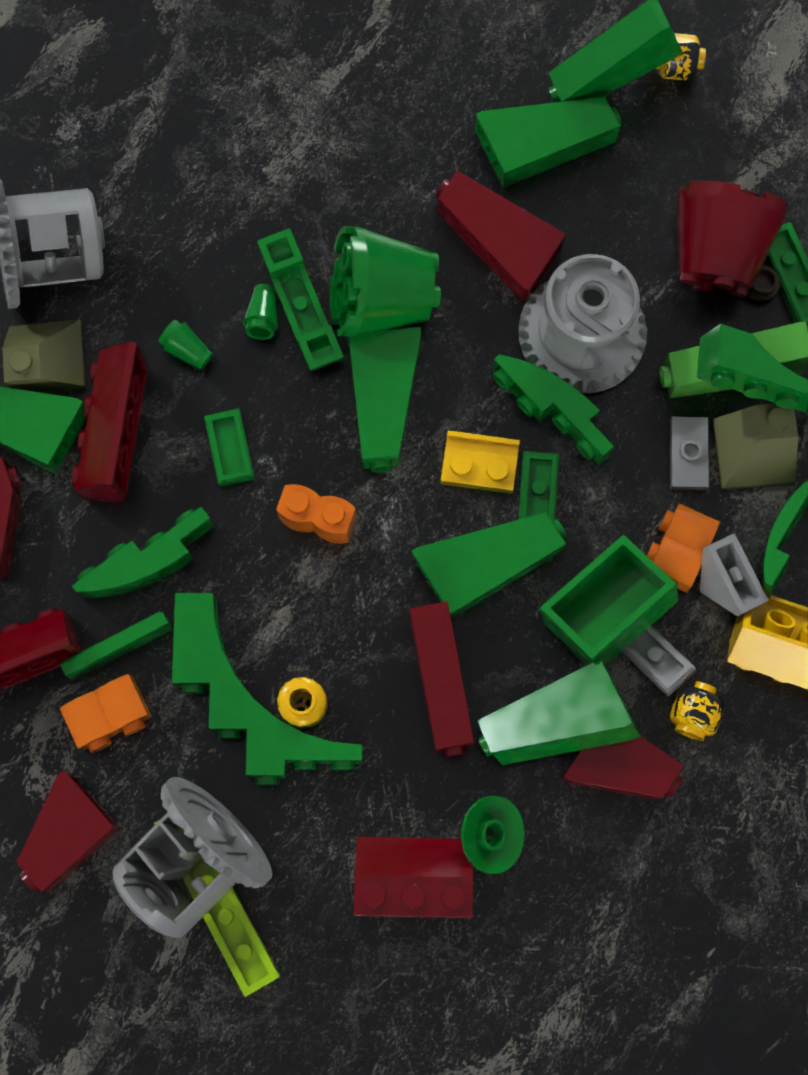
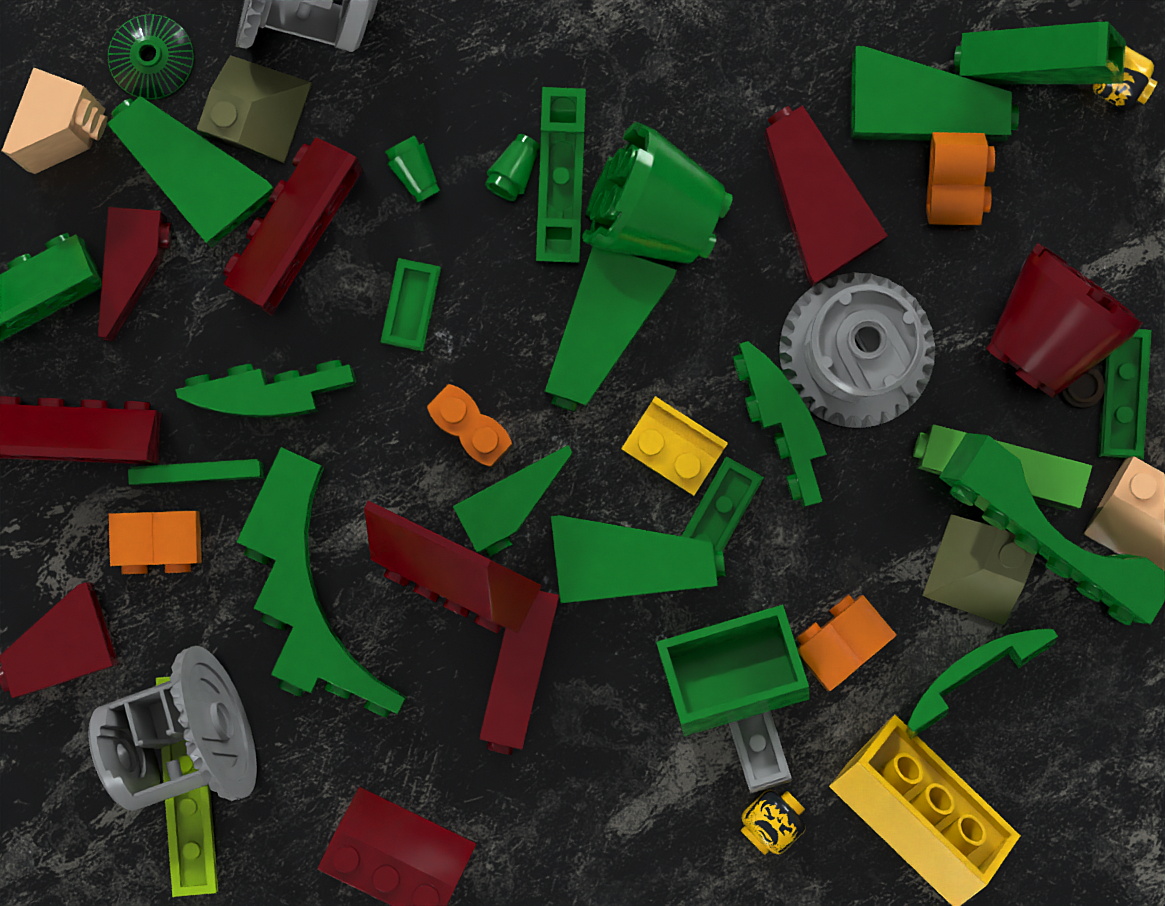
camera: 25 degrees right, 10 degrees up
(292, 693) = (348, 620): yellow head -> none
(350, 620) = (448, 570): none -> dark red slope
(369, 566) = (505, 506): none -> green slope
(492, 834) = (508, 860): green dish -> none
(559, 719) = (628, 767): green slope -> none
(596, 173) = (958, 178): none -> orange brick
(627, 769) = (667, 840): dark red slope -> none
(689, 453) = (905, 541): light grey plate -> none
(729, 577) = (876, 701): light grey slope -> none

